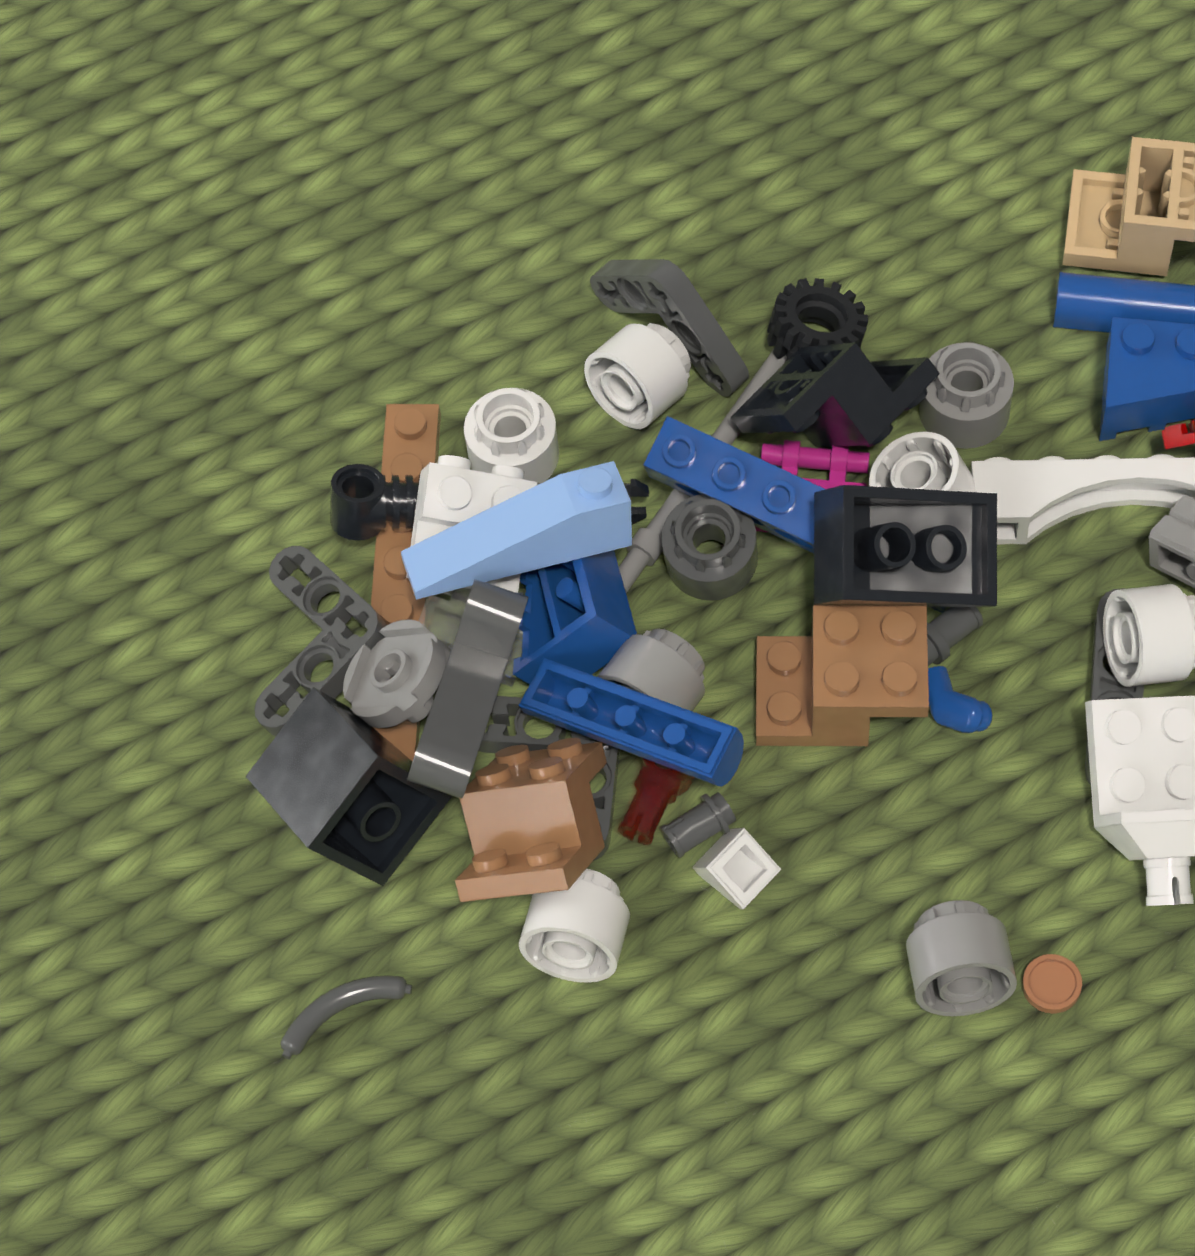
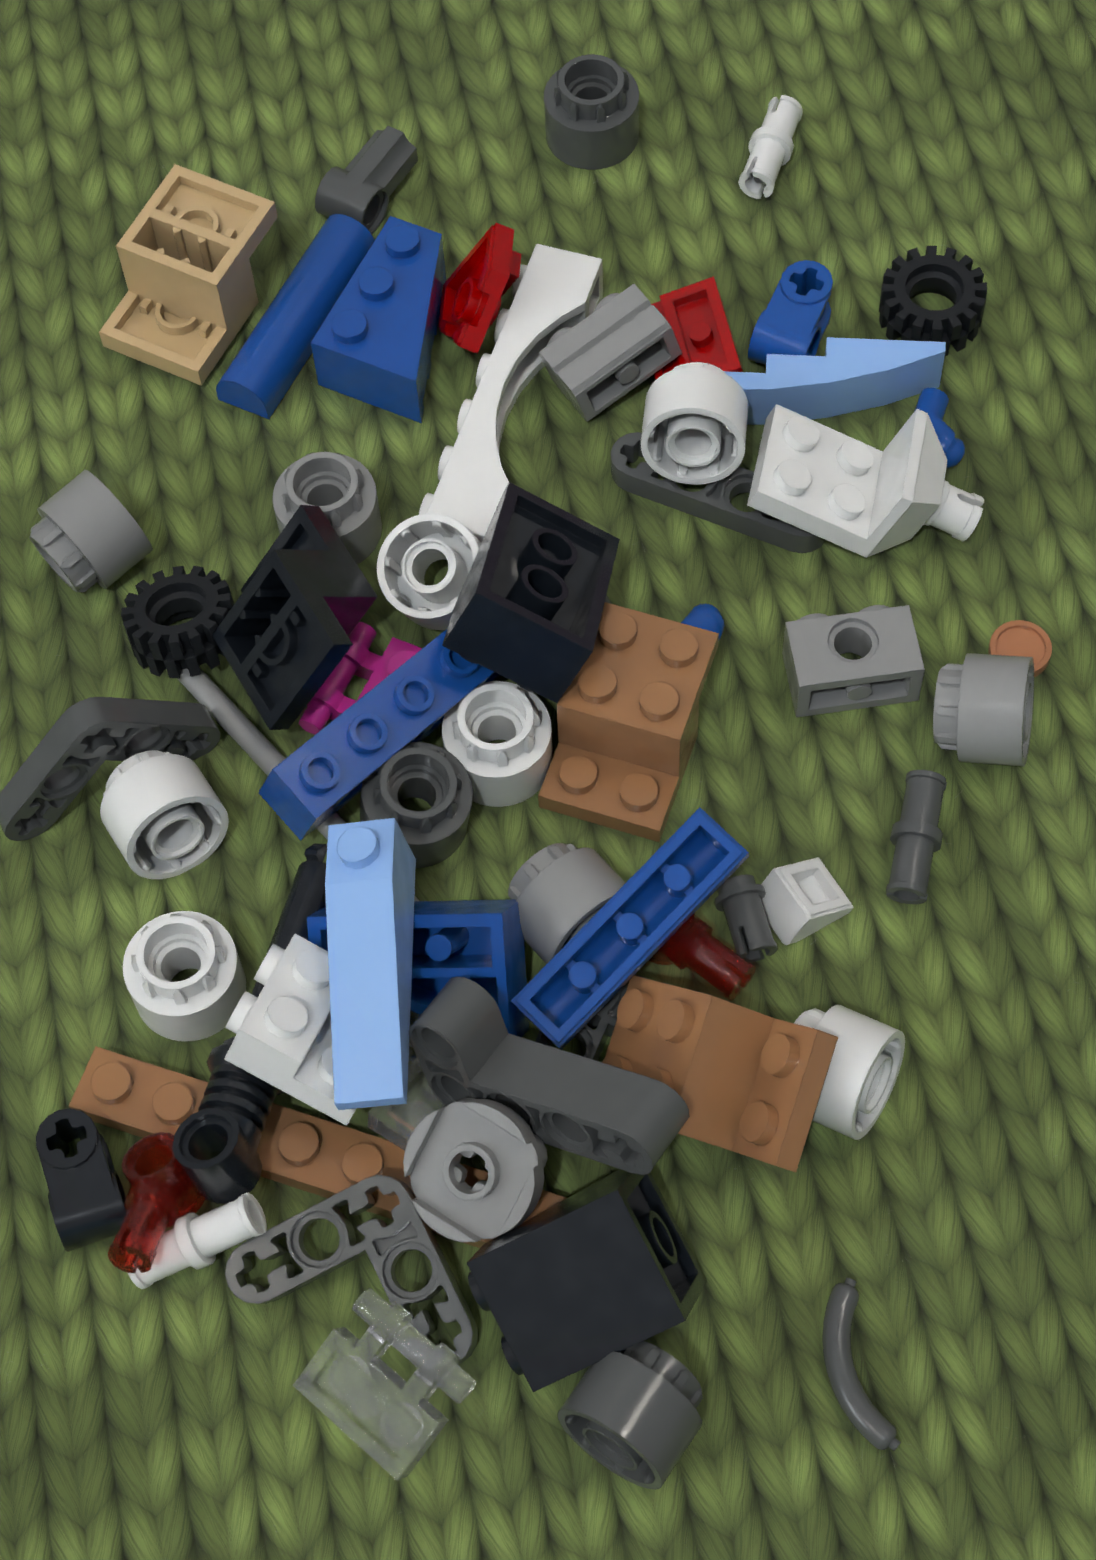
camera: 75 degrees left, 0 degrees up
(218, 673) = (370, 1399): none -> clear plate
(248, 851) = (635, 1413): none -> dark grey piece
(302, 519) = (199, 1238): none -> white pin
(309, 478) = (156, 1199): none -> clear red pin
(326, 435) = (84, 1188): none -> black piece
(773, 566) = (507, 770): none -> white piece
(821, 937) = (916, 837): none -> dark grey pin
(869, 233) = (88, 534): none -> light grey piece
(976, 870) = (829, 683): none -> light grey brick

